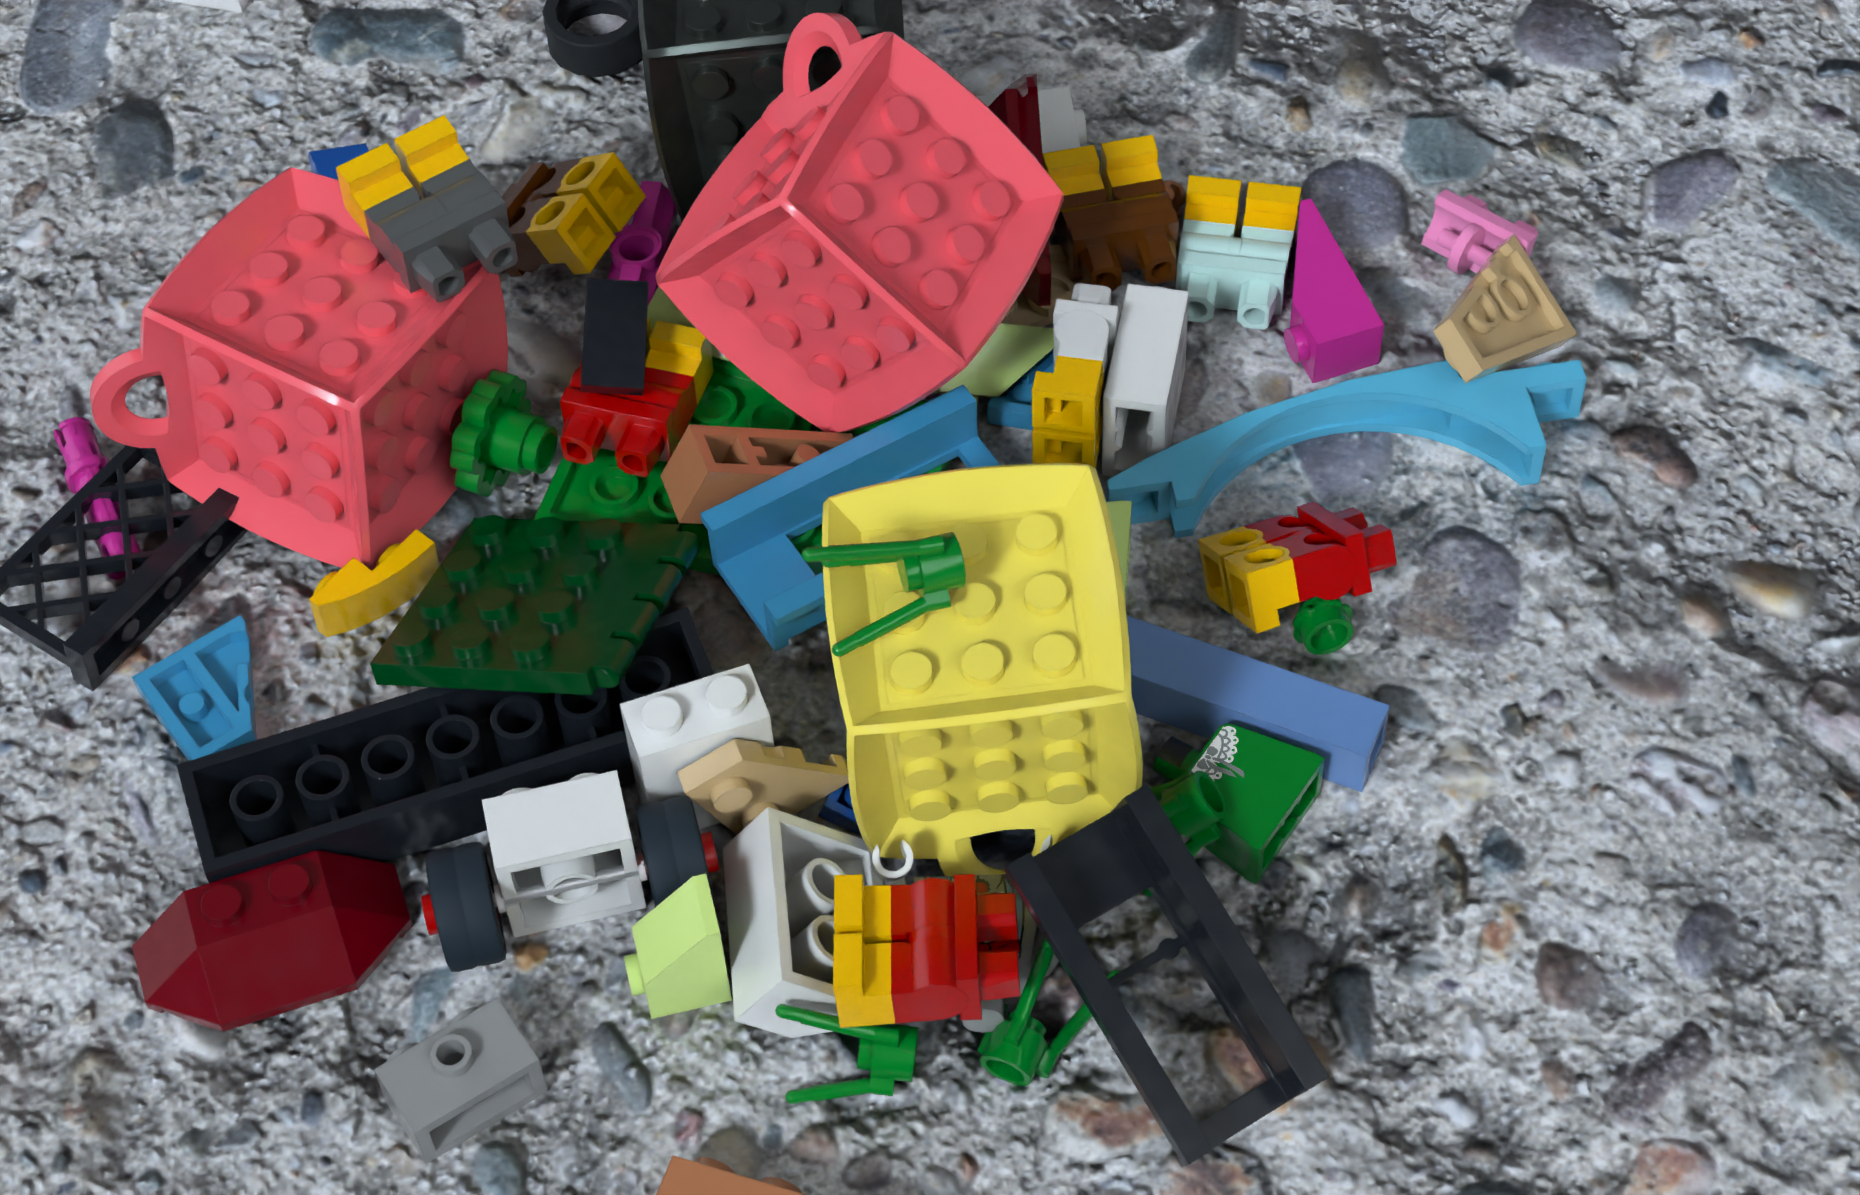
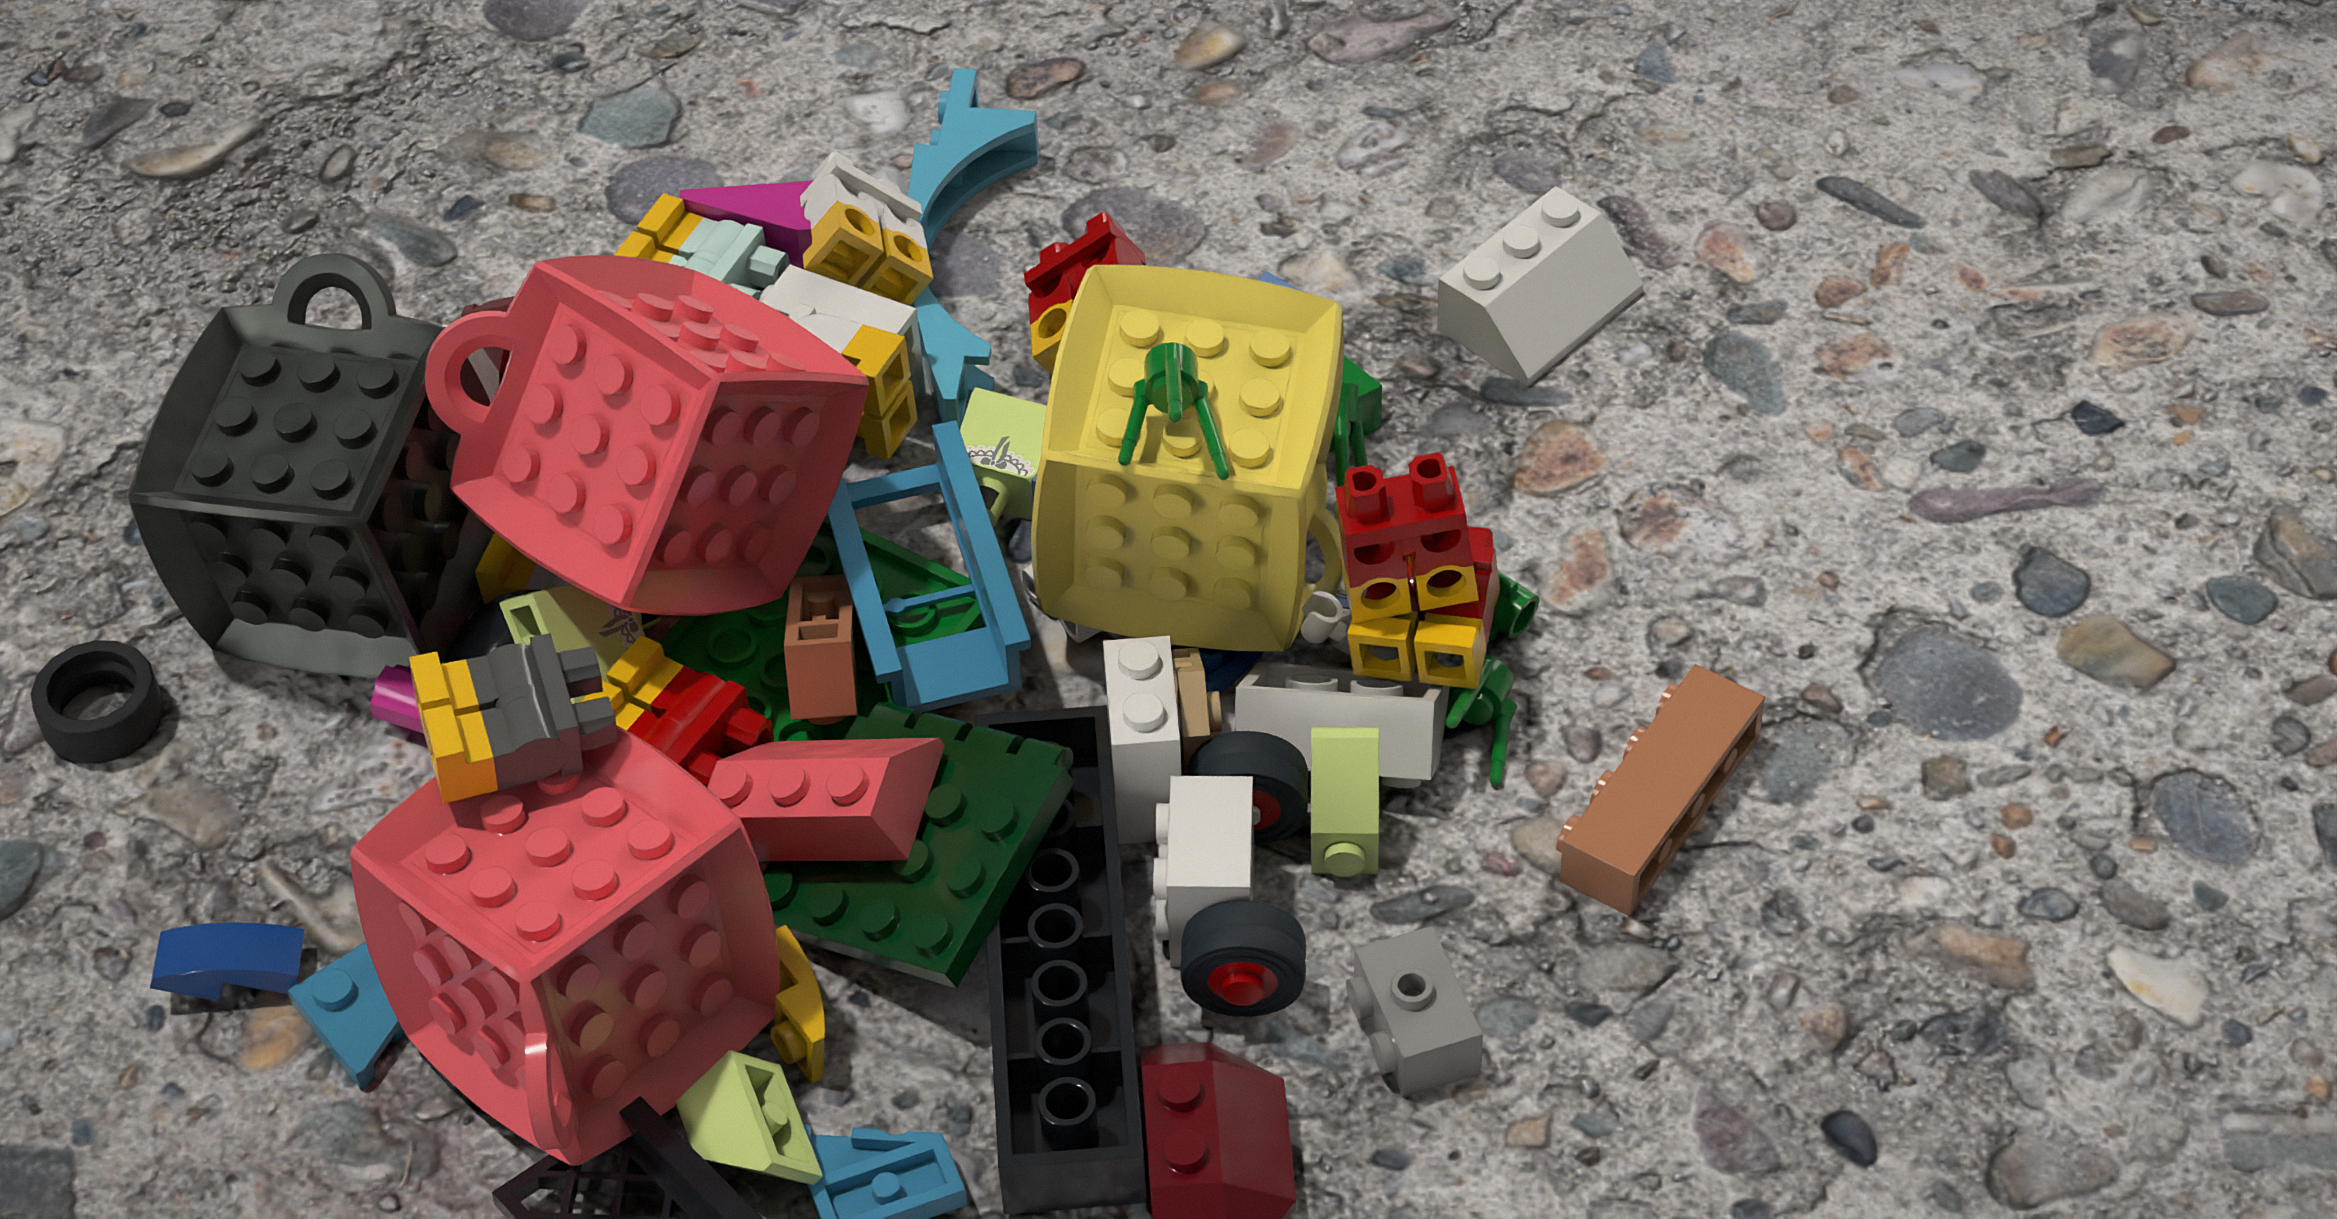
camera: 75 degrees left, 5 degrees down
(220, 587) = (748, 1120): none -> yellowish green slope
(554, 513) = (830, 796): none -> coral slope
(569, 212) = (368, 755): yellow hips -> none
(614, 337) = (649, 692): black slope -> none
(900, 870) = (1398, 519): none -> red hips
(1105, 867) = (1405, 419): black piece -> none
(1301, 341) = (865, 232): none -> yellow hips
(1470, 233) = (769, 108): bright pink hips -> none
(1495, 979) = (1537, 287): none -> white slope
(1502, 316) = (886, 99): tan wing -> none

